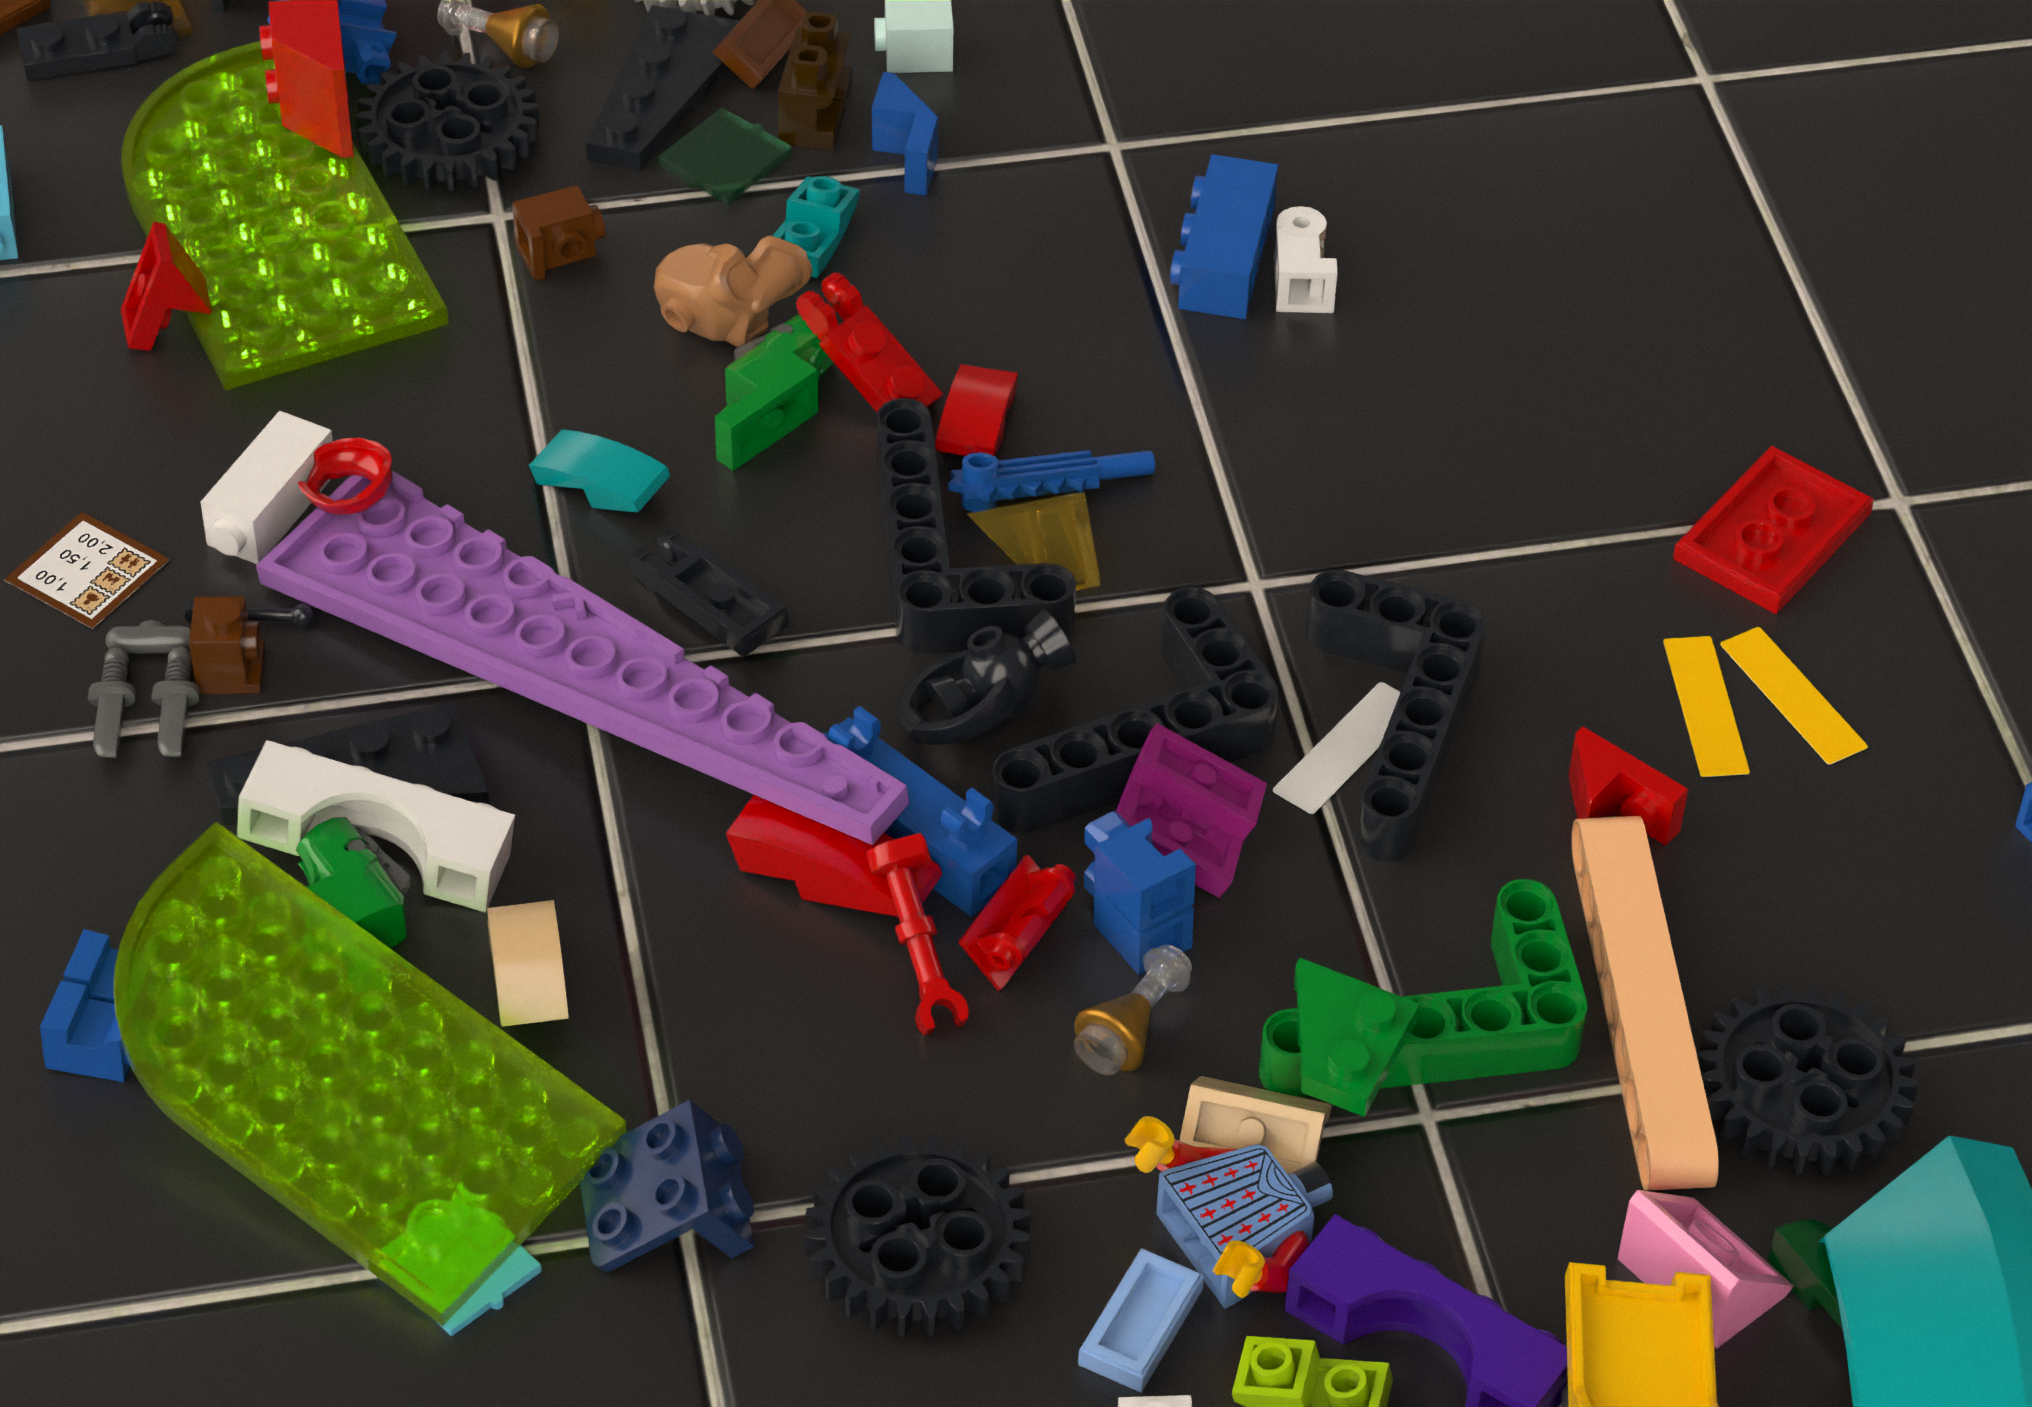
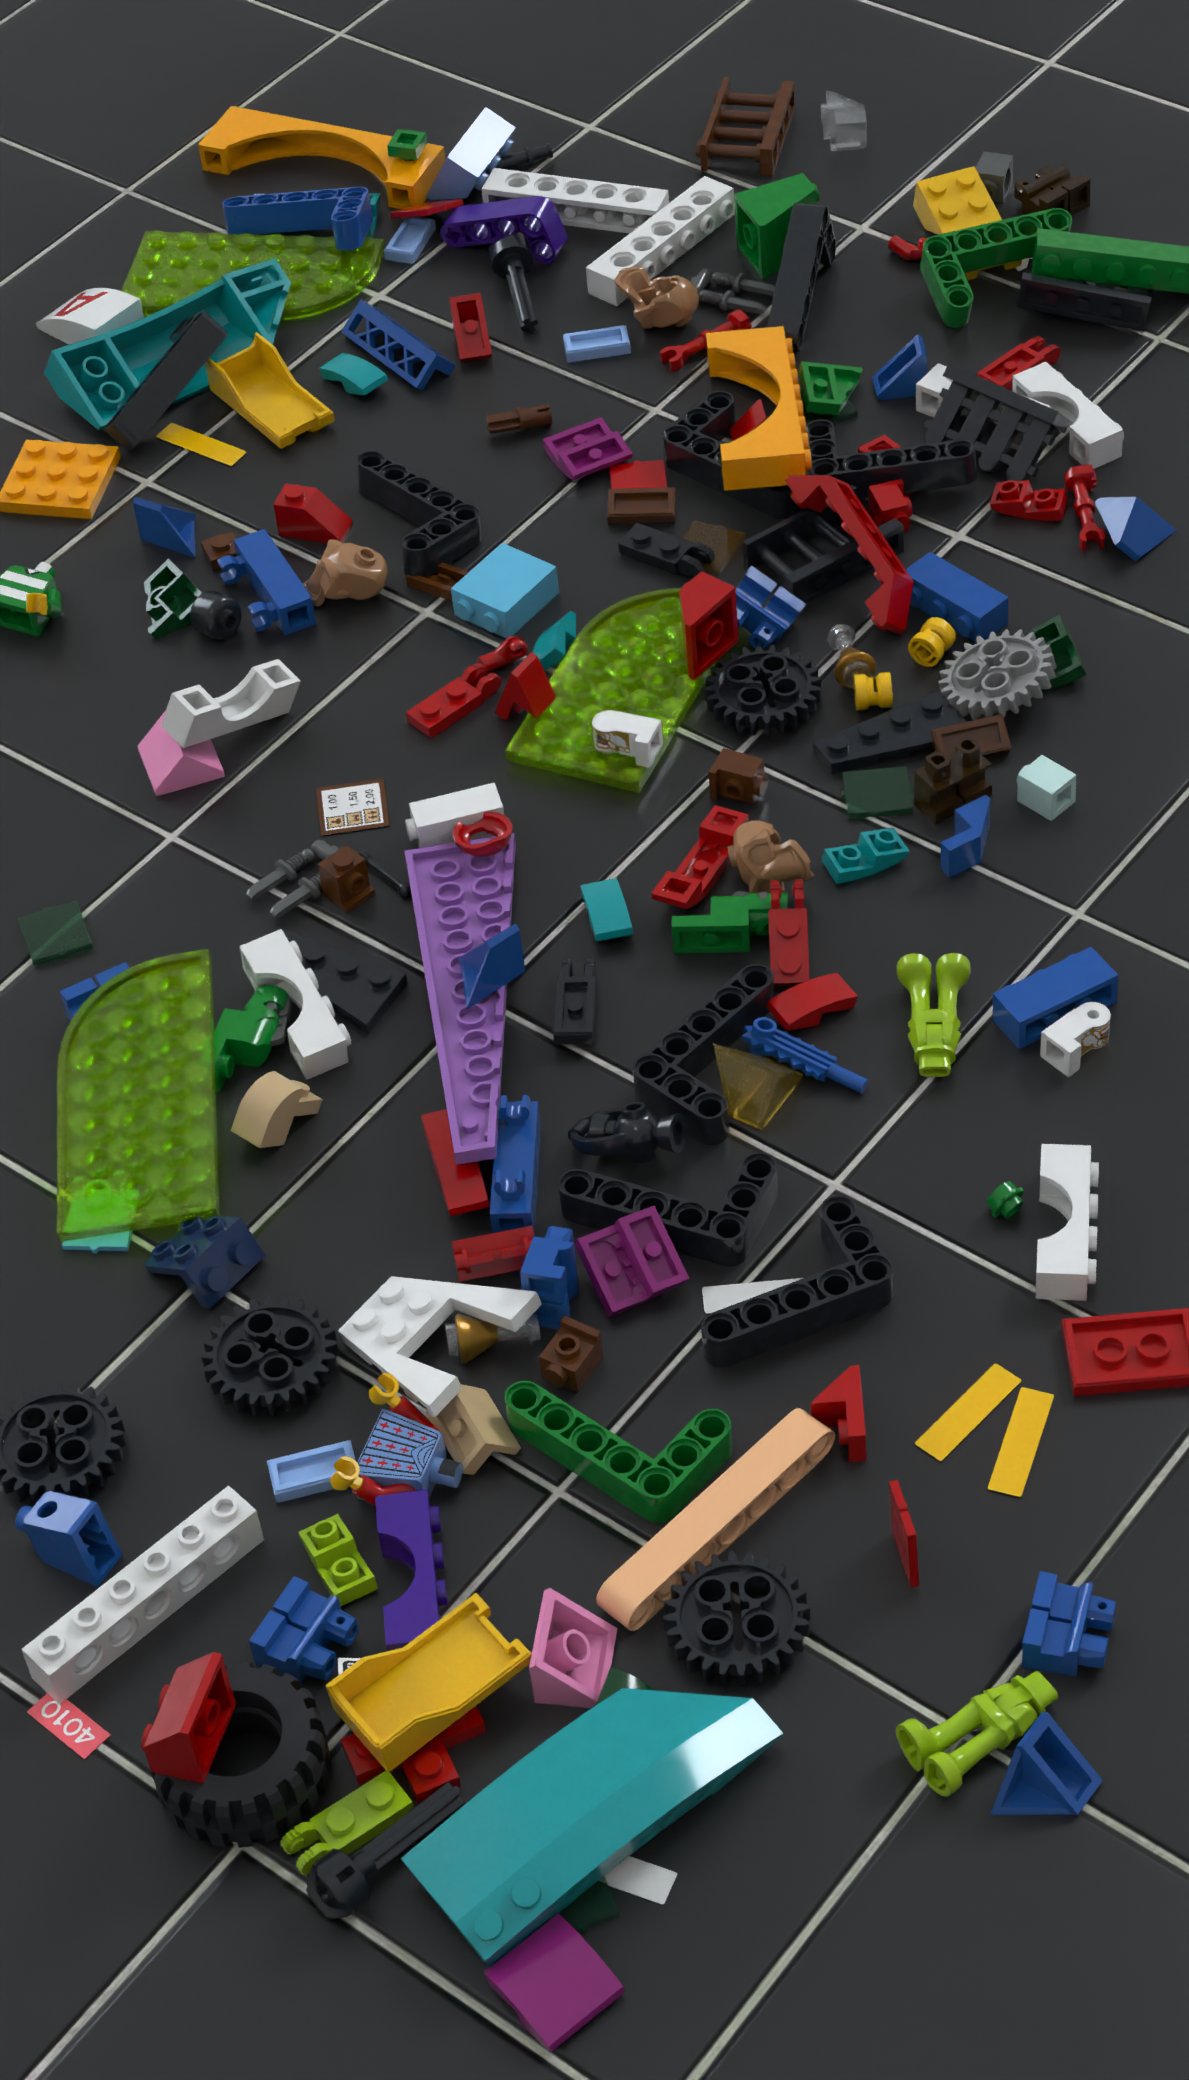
camera: 55 degrees right, 0 degrees up
(51, 271) = (506, 653): none -> red arm
(55, 369) = (454, 700): none -> red hinge
(109, 217) = (553, 641): none -> teal slope
(377, 257) = (628, 735): none -> white leg
(586, 44) = (865, 695): none -> yellow wheel
(591, 598) = (492, 965): none -> blue slope
(636, 343) = (703, 863): none -> red slope
(896, 862) = (456, 1180): red piece -> none
(1013, 1070) = (409, 1311): none -> white wing
(1150, 355) = (934, 1031): none -> lime piece
(1254, 958) = (571, 1355): none -> reddish brown brick
(1347, 1035) = (536, 1415): green wing -> none
(1460, 469) = (1005, 1200): none -> green plate
(1502, 407) = (1063, 1257): none -> white arch
(1859, 853) = (904, 1533): none -> red piece

